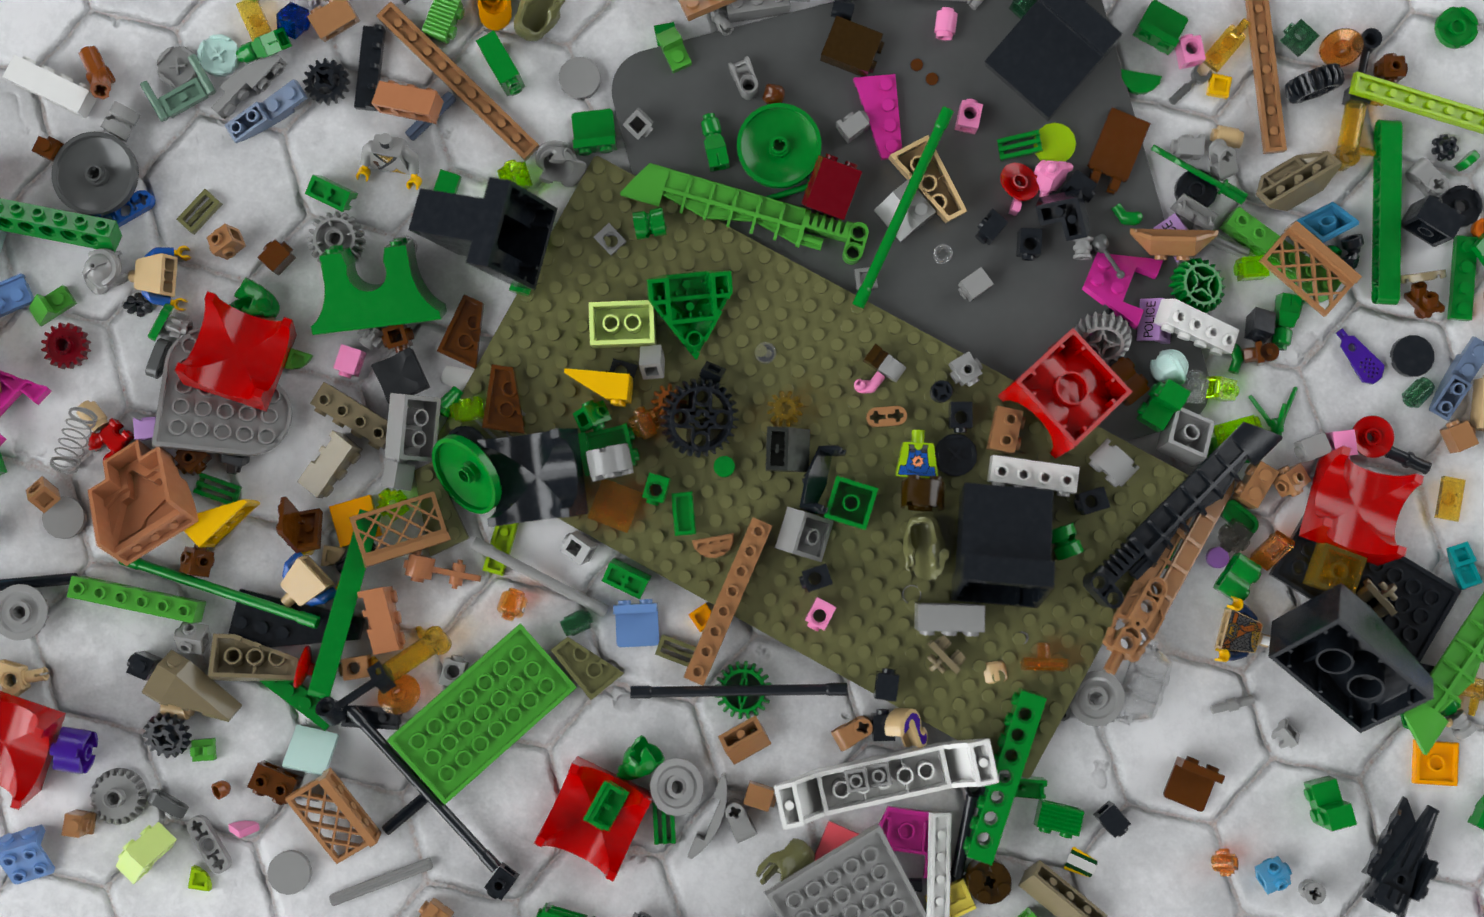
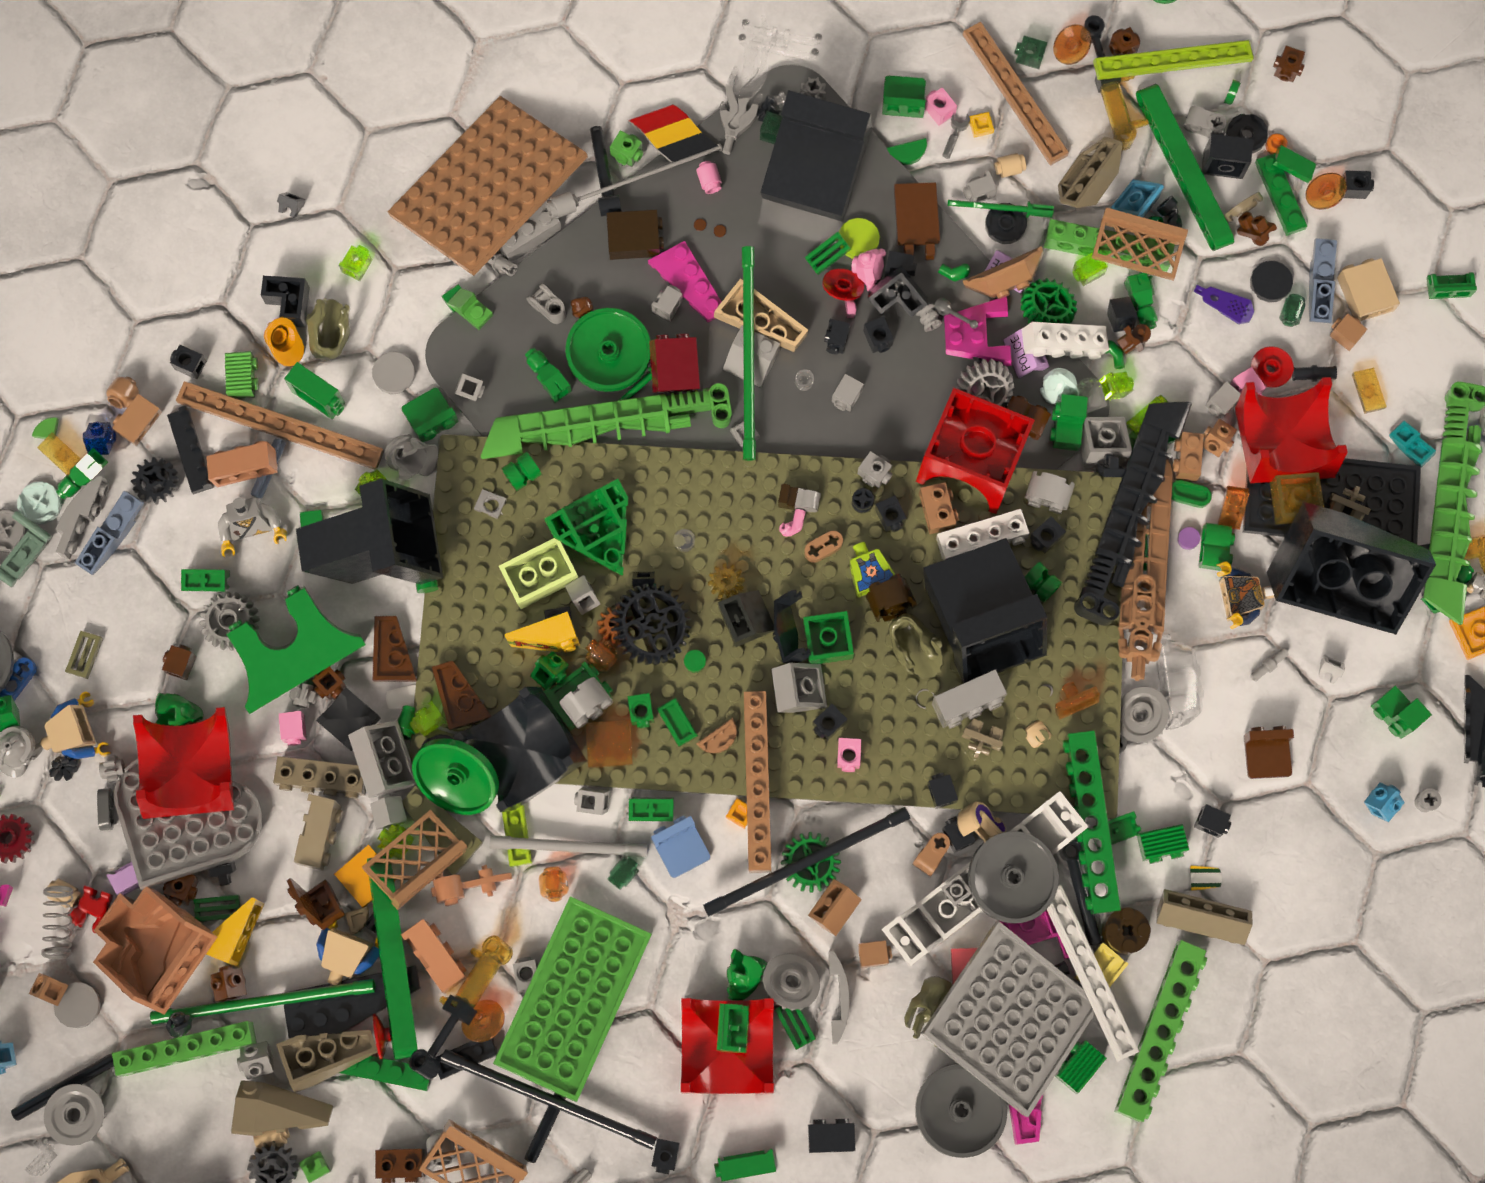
camera: 25 degrees left, 10 degrees down
(139, 577) = (178, 1024): none -> black arm
(142, 664) = (219, 1109): black brick -> none
(160, 322) = (93, 773): green tile -> none
(225, 241) = (123, 669): medium nougat brick -> none
(297, 359) = (240, 750): bright green tile -> none
(310, 750) = (421, 1115): light aqua tile -> none
(345, 667) = (440, 1014): medium nougat brick -> none
(585, 667) = (651, 912): olive wing -> none
(661, 645) = (713, 849): olive tile -> none
(740, 823) = (869, 991): light grey piece -> none
(911, 794) = (1013, 877): none -> dark grey dish
(955, 455) = (904, 552): black tile -> none
(969, 125) = (771, 256): bright pink brick -> none
(1179, 464) = (1110, 467): none -> black tile
(1194, 212) = (1013, 242): light grey hinge -> none
(1222, 160) = (1016, 186): light grey piece -> none
(1224, 862) = (1335, 811): clear orange gear -> none
(1226, 45) = (969, 87): clear yellow hinge -> none
(1227, 245) = (1059, 258): light grey axle -> none
(1239, 531) = (1190, 503): clear smoke brick -> none
(1276, 424) = (1181, 395): green plant -> none
(1314, 83) = (1063, 84): black gear -> none
(1445, 147) = (1207, 89): black plant -> none

